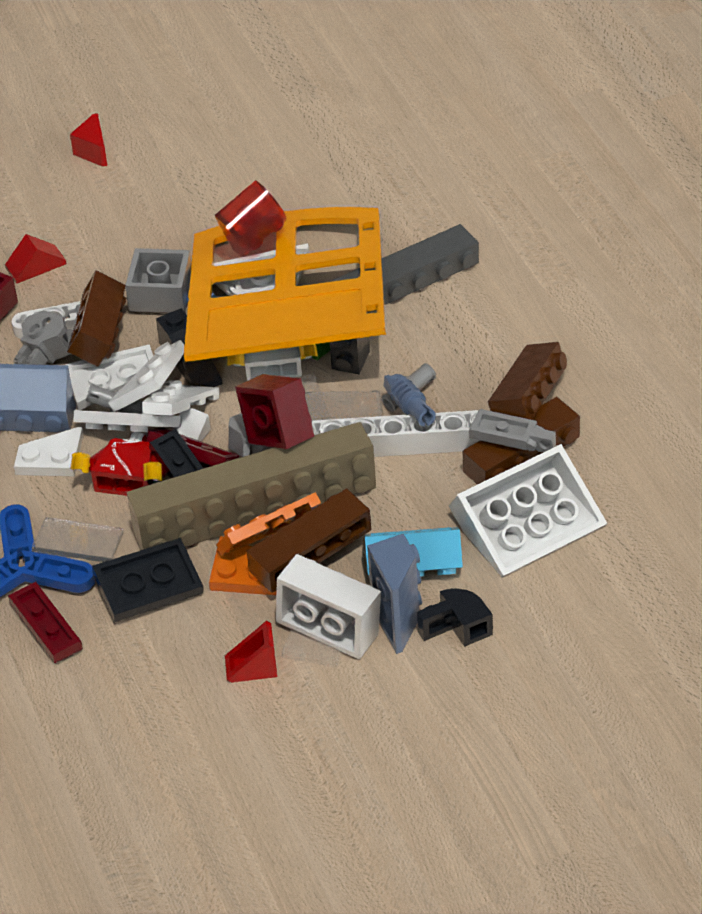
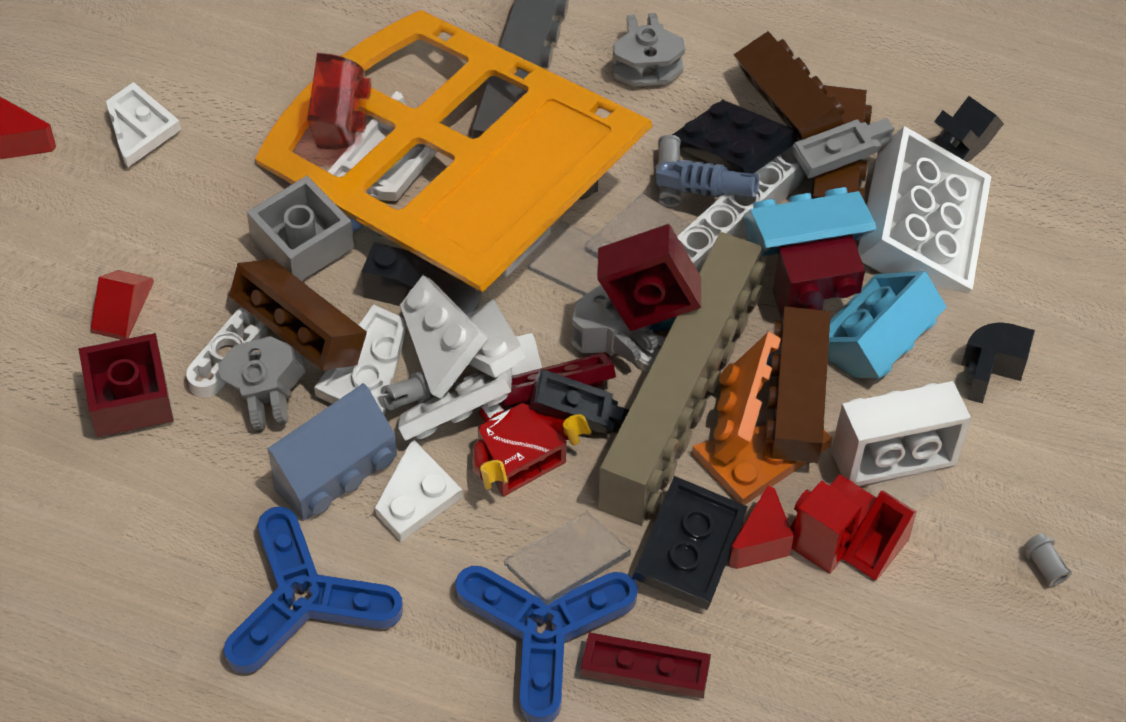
camera: 50 degrees left, 10 degrees up
(157, 177) = (139, 123): none -> white wing
(193, 604) = (764, 535): none -> red slope
(227, 623) = (829, 521): none -> red brick
(337, 736) = (1047, 559): none -> light grey pin
(396, 490) = (817, 272): none -> dark red brick
(396, 575) = (955, 353): sand blue slope -> none
(428, 457) = (808, 219): none -> medium azure slope
(463, 390) = (735, 138): none -> black plate
(481, 311) = (647, 51): none -> light grey hinge
(619, 486) = (968, 129): none -> black brick

